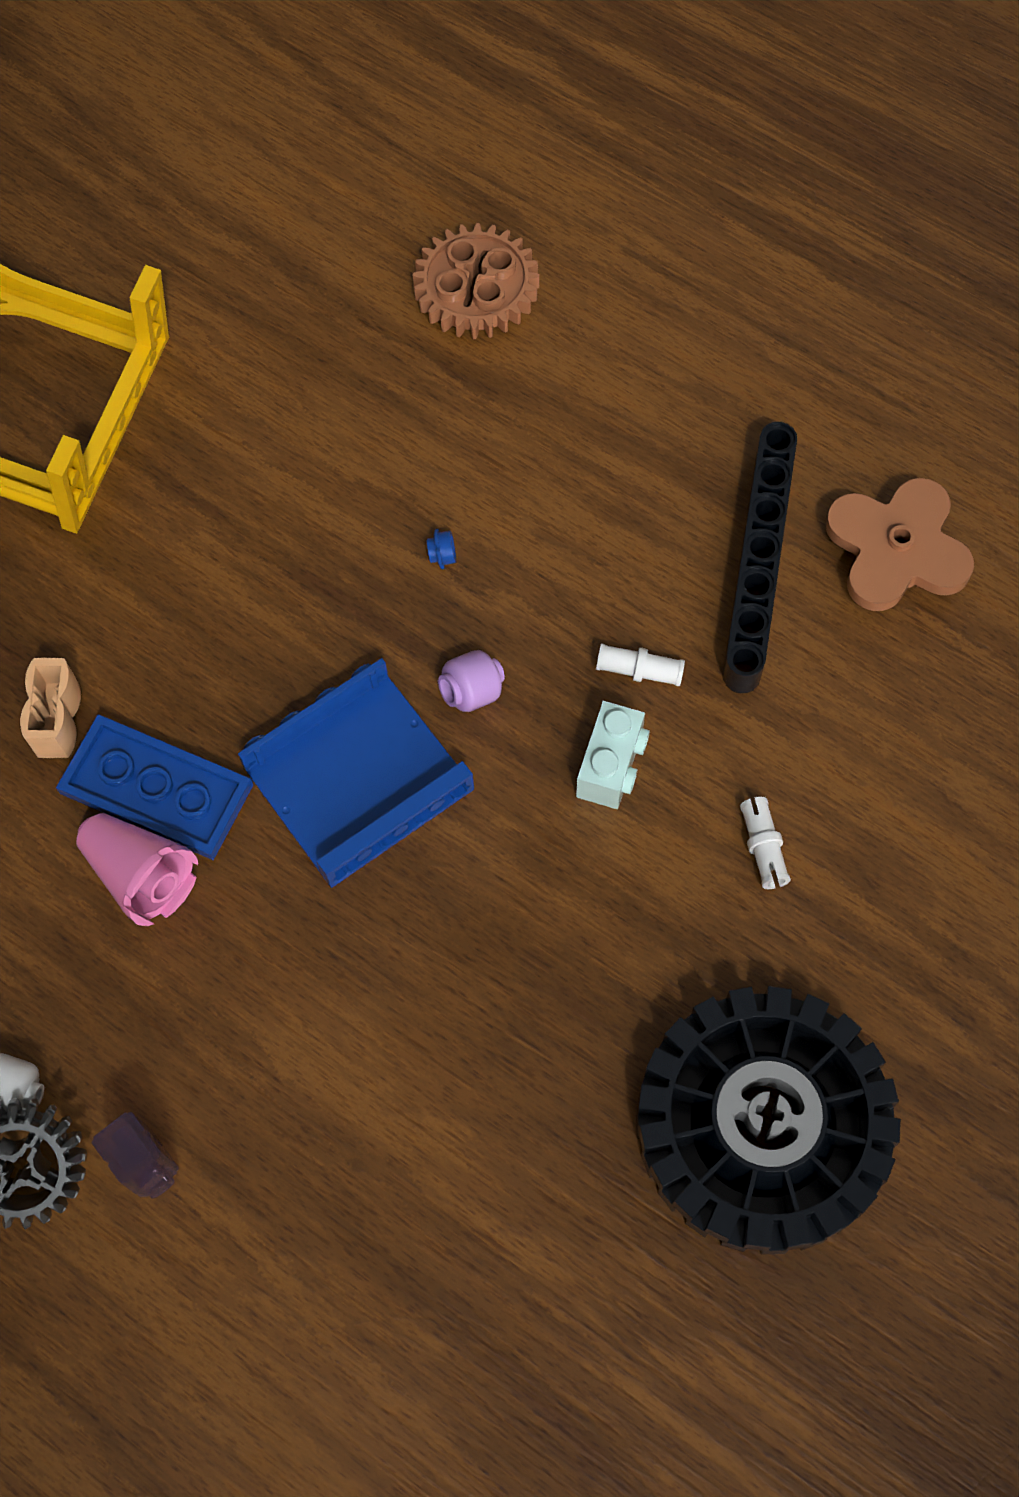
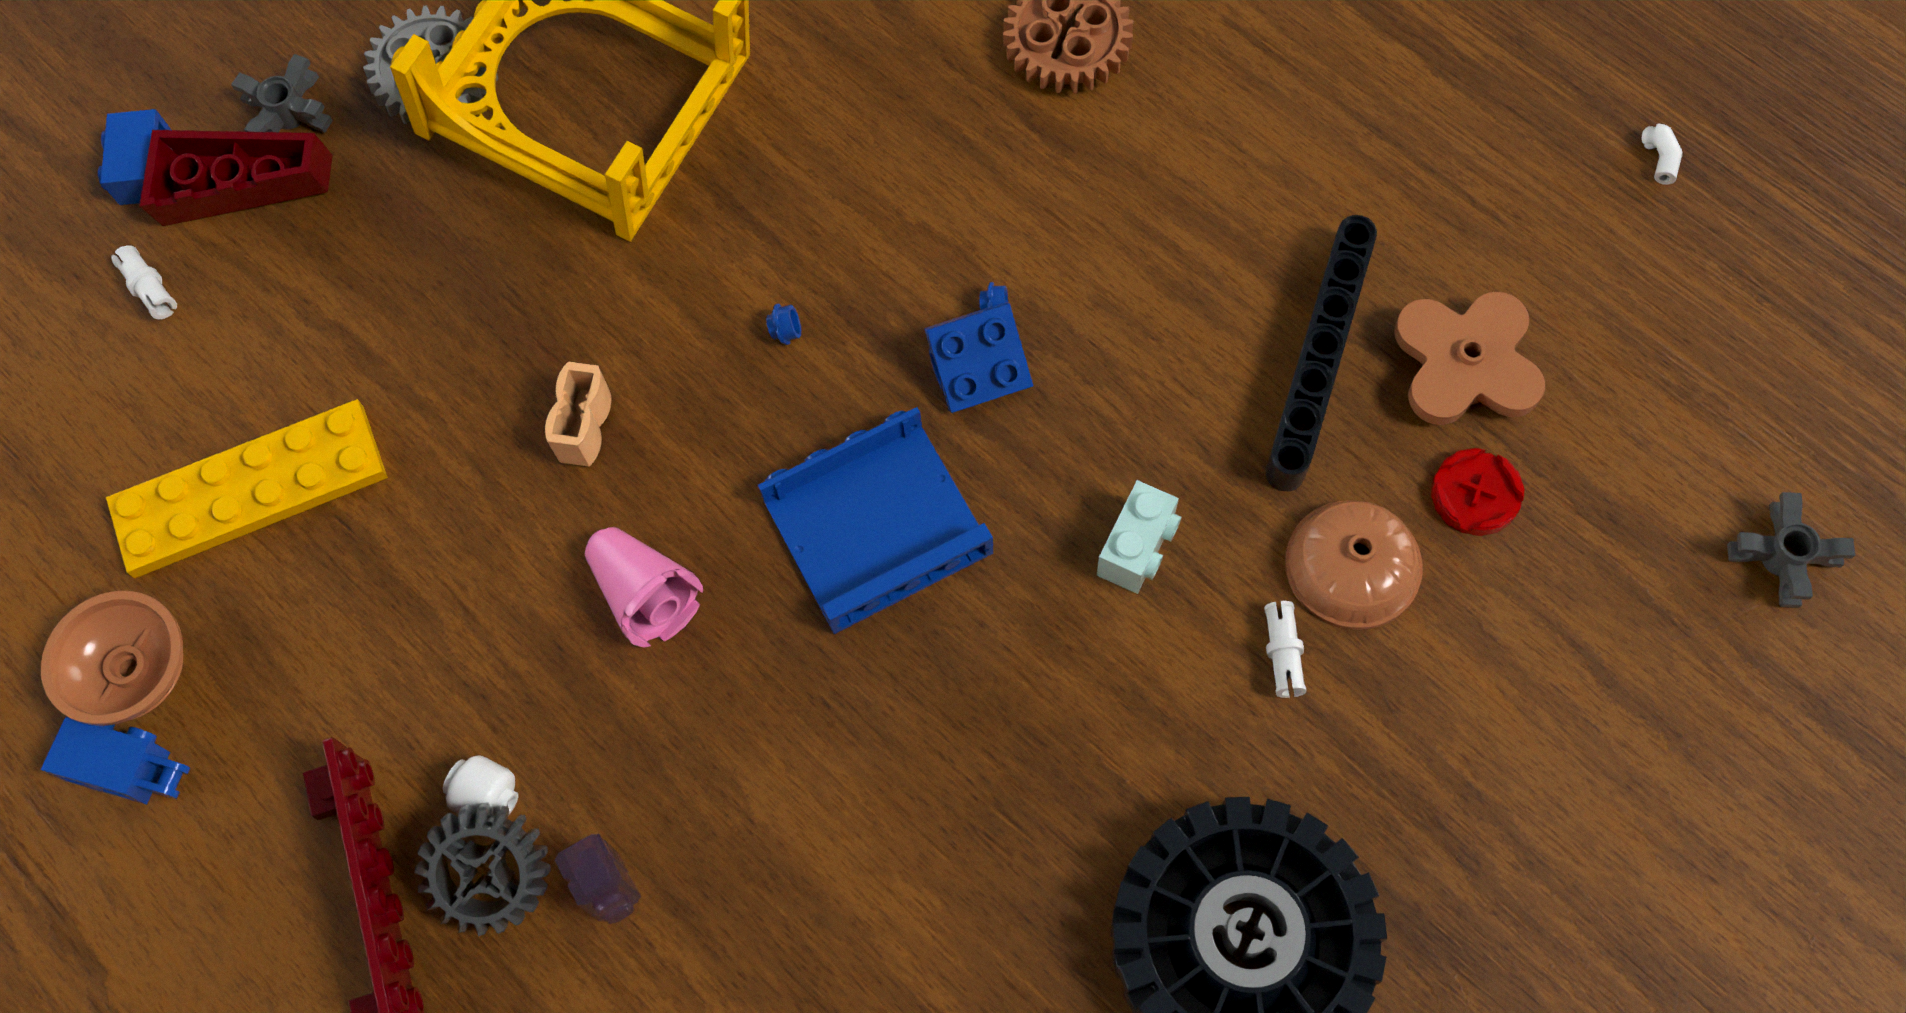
camera: 10 degrees right, 0 degrees up
(155, 786) = (672, 507): blue plate -> none
(240, 594) = (784, 323): none -> blue plate
(433, 602) = (978, 357): none -> blue plate
(471, 681) = (1005, 442): lavender head -> none
(640, 664) = (1181, 448): white pin -> none
(813, 774) = (1347, 586): none -> nougat hat
(924, 670) = (1477, 492): none -> red tile

